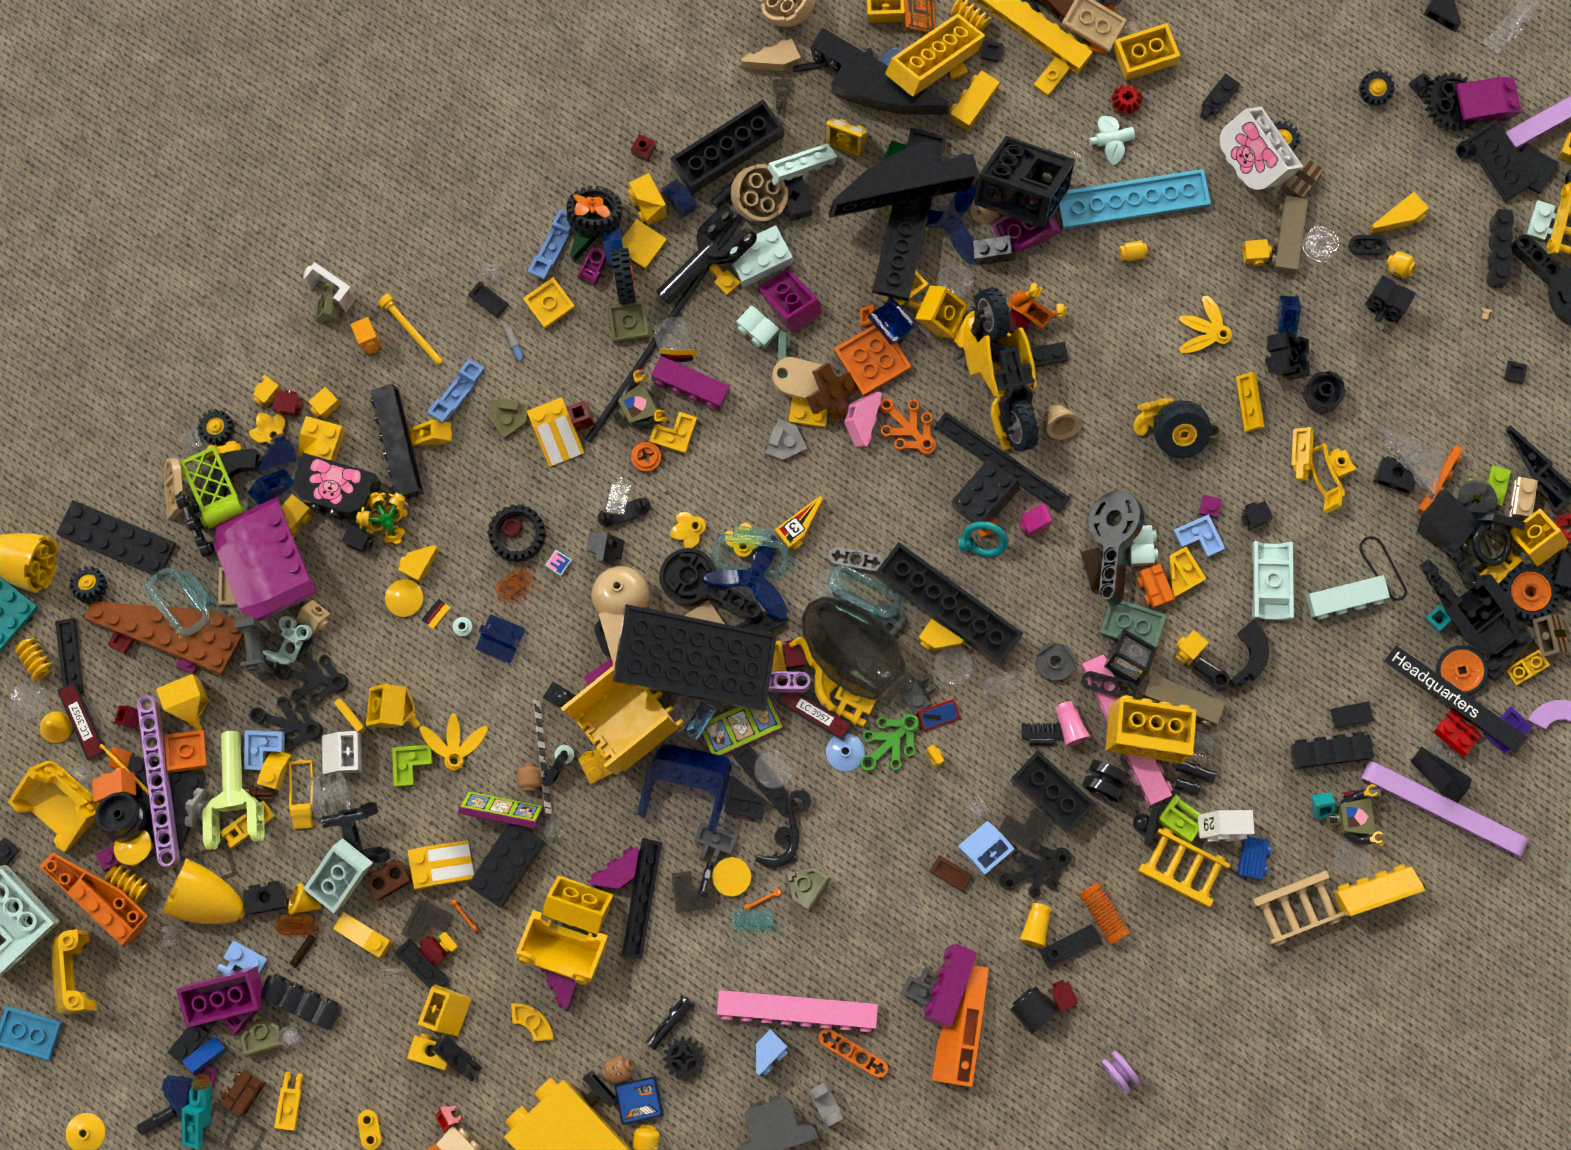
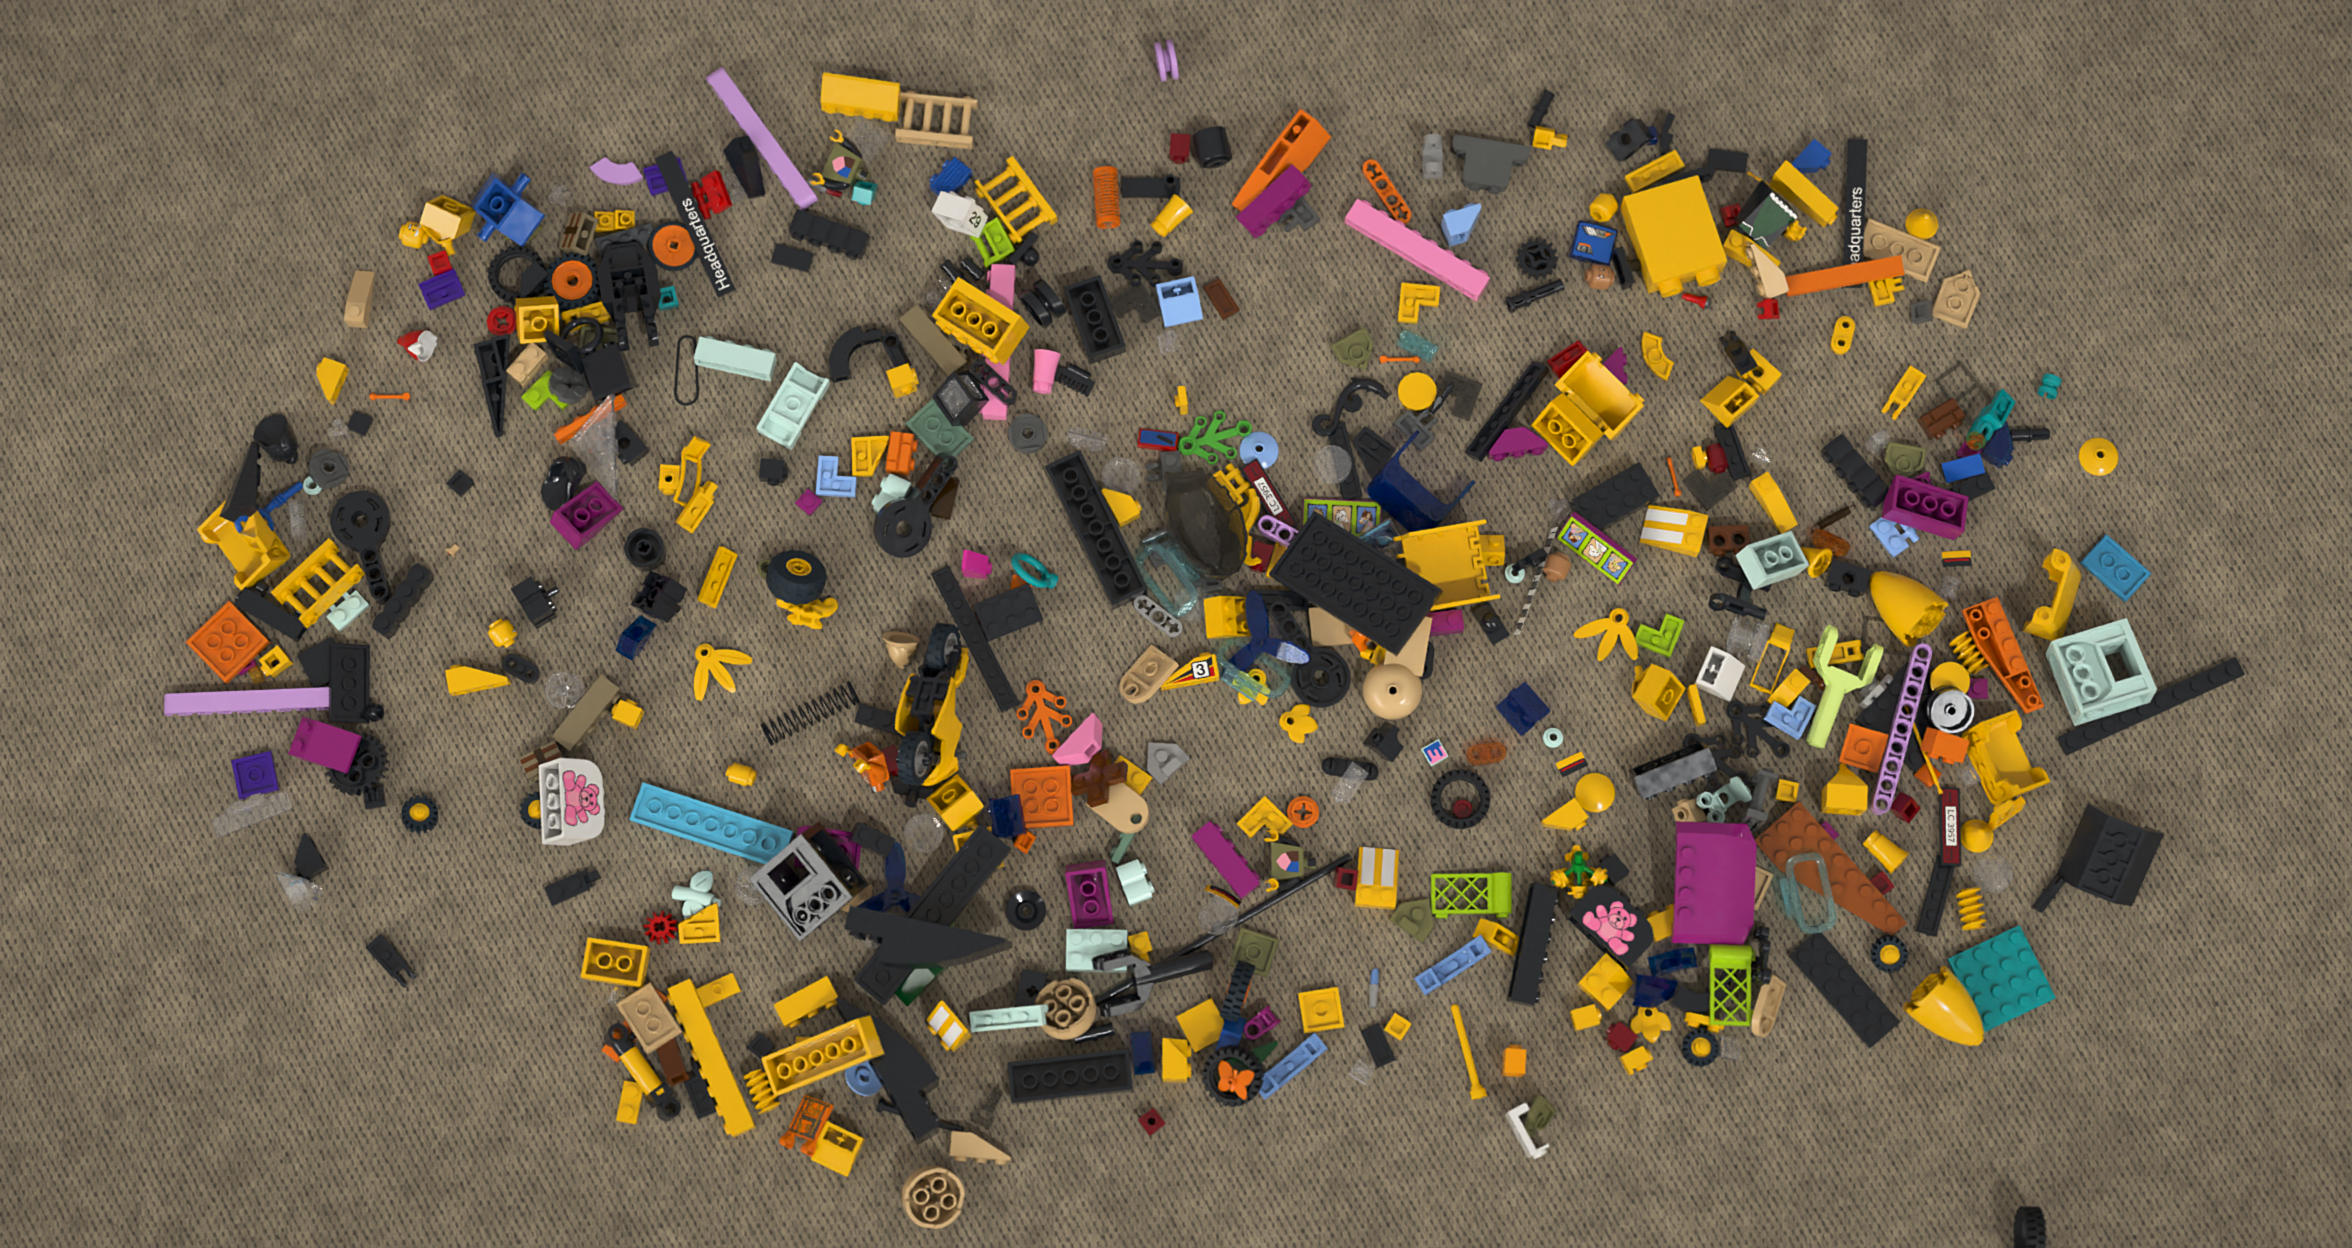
camera: 155 degrees left, 0 degrees up
(37, 750) = (2005, 811): none -> yellow plate
(128, 670) = (1885, 851): none -> yellow plant
(176, 969) = (1956, 558): none -> sticker
(237, 681) = (1787, 791): none -> yellow plate
(342, 643) = (1672, 770): none -> brick
(446, 471) = (1498, 898): none -> lime piece
(478, 321) = (1397, 1027): none -> yellow plate
(512, 1096) = (1703, 301): none -> red piece
(609, 978) = (1567, 358): none -> red slope
(779, 963) = (1414, 295): none -> yellow plate
(797, 586) = (1226, 617): none -> yellow slope
(834, 251) = (1023, 900): none -> black dish
(838, 502) = (1147, 675): none -> tan tile
(1086, 368) = (766, 730): none -> black piece
(1094, 115) = (701, 926): none -> yellow wing
(1392, 398) = (585, 515): none -> magenta slope
(1429, 414) = (562, 481): none -> black hair
(1529, 53) = (255, 775): none -> dark purple plate

